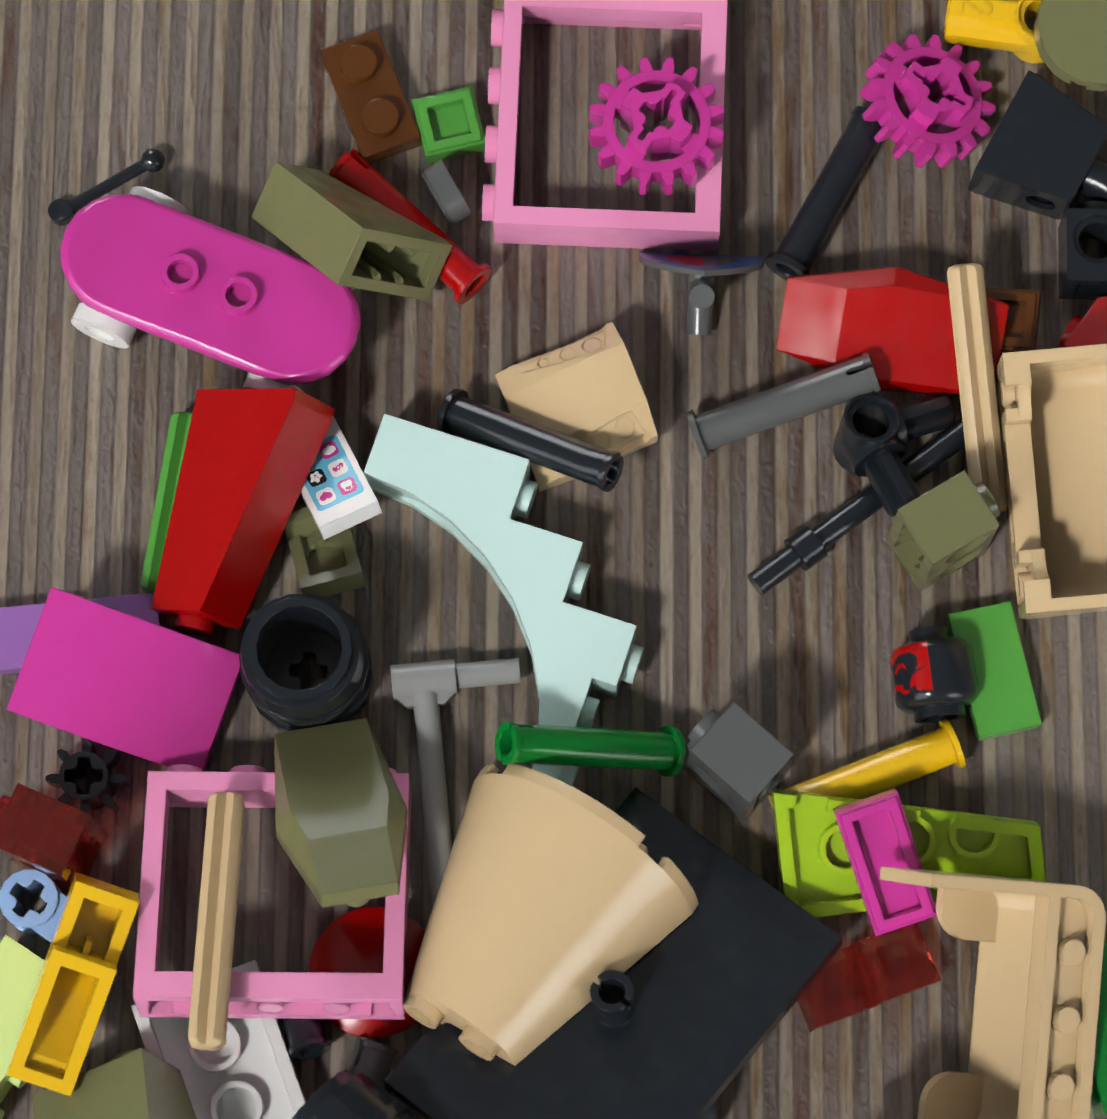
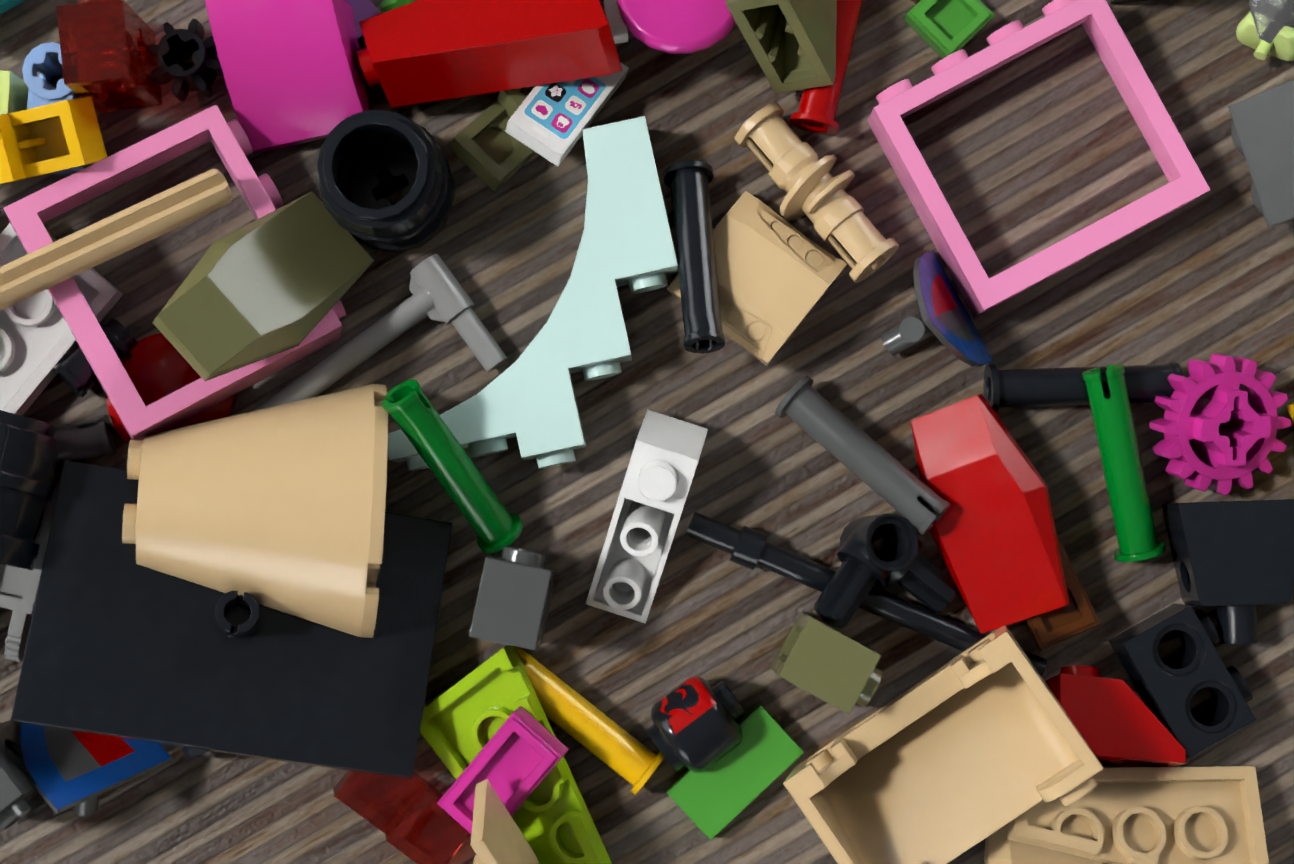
camera: 60 degrees right, 10 degrees up
(446, 193) = (882, 51): dark grey tile -> none
(533, 314) = (814, 192): none -> tan piece
(636, 108) = (1049, 170): dark pink gear -> none
(728, 615) = (646, 515): none -> white slope
(916, 198) = (1122, 465): none -> green pin
(976, 379) = (979, 616): tan axle -> none

